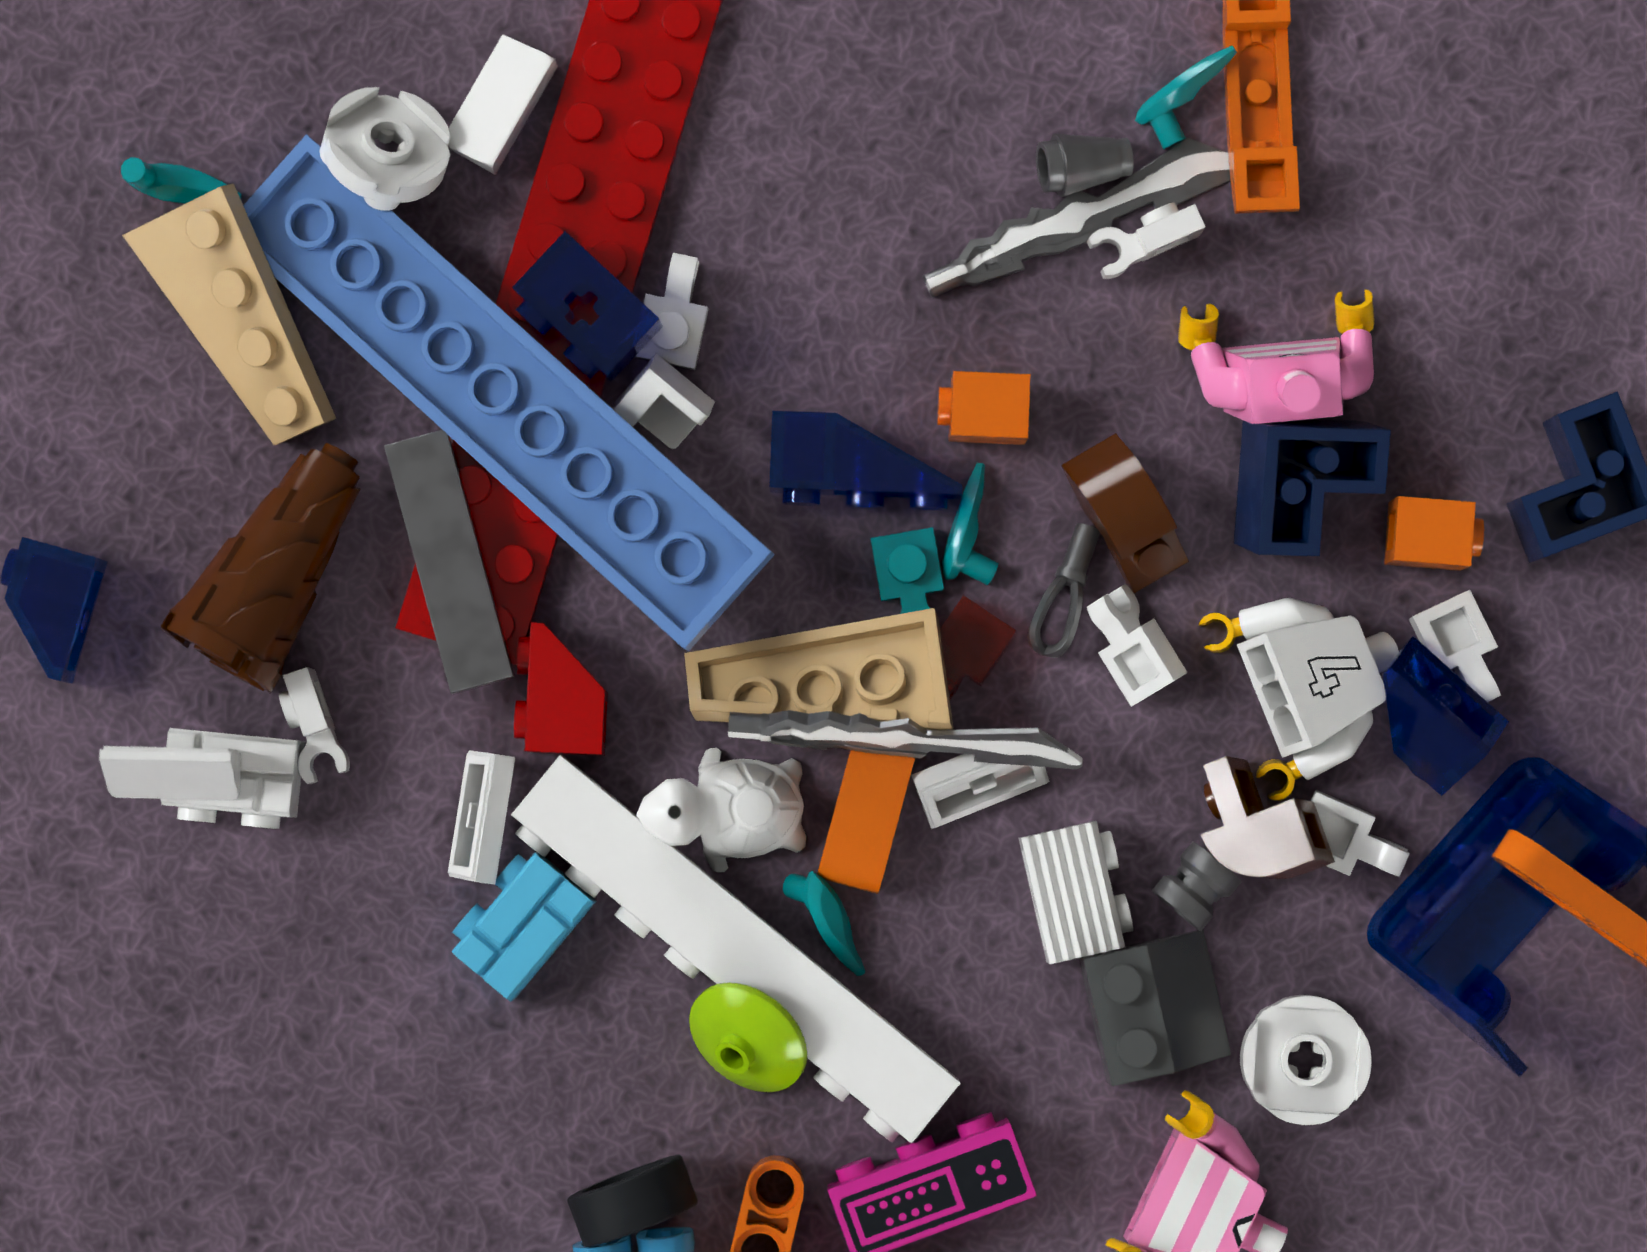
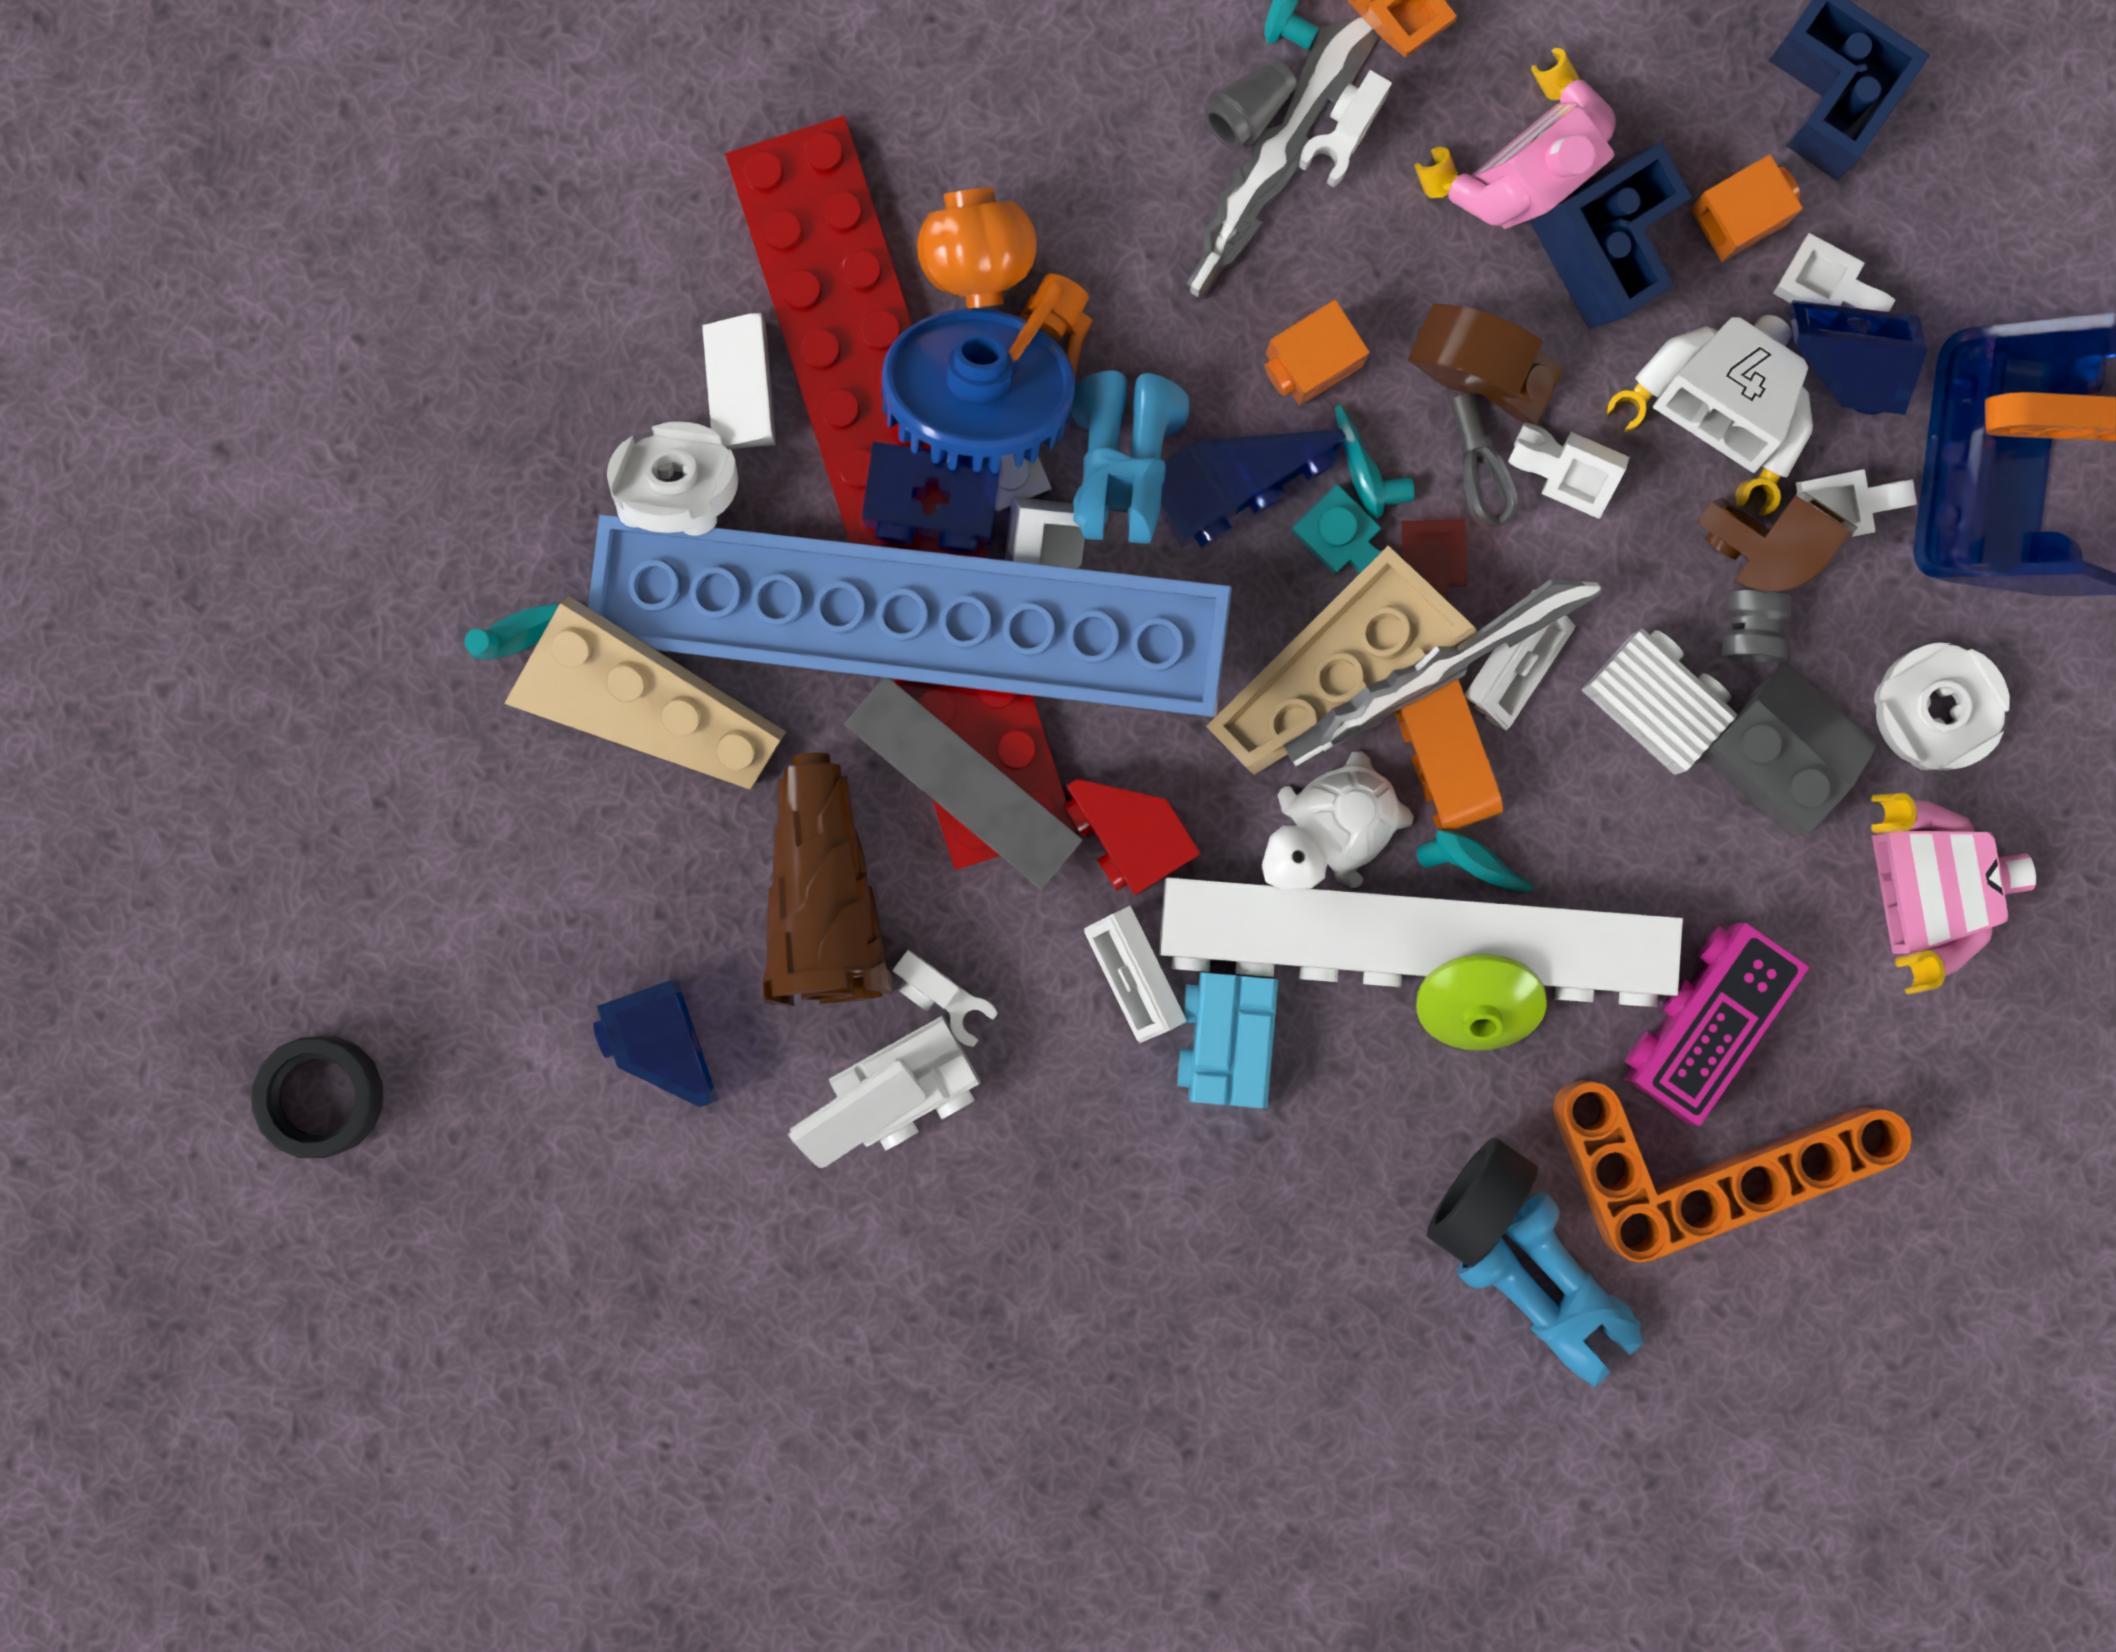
camera: 30 degrees left, 0 degrees up
(684, 244) = (964, 395): none -> blue wheel
(742, 397) = (1110, 477): none -> dark azure piece
(768, 127) = (977, 246): none -> orange plant
(796, 223) = (1057, 311): none -> orange plant

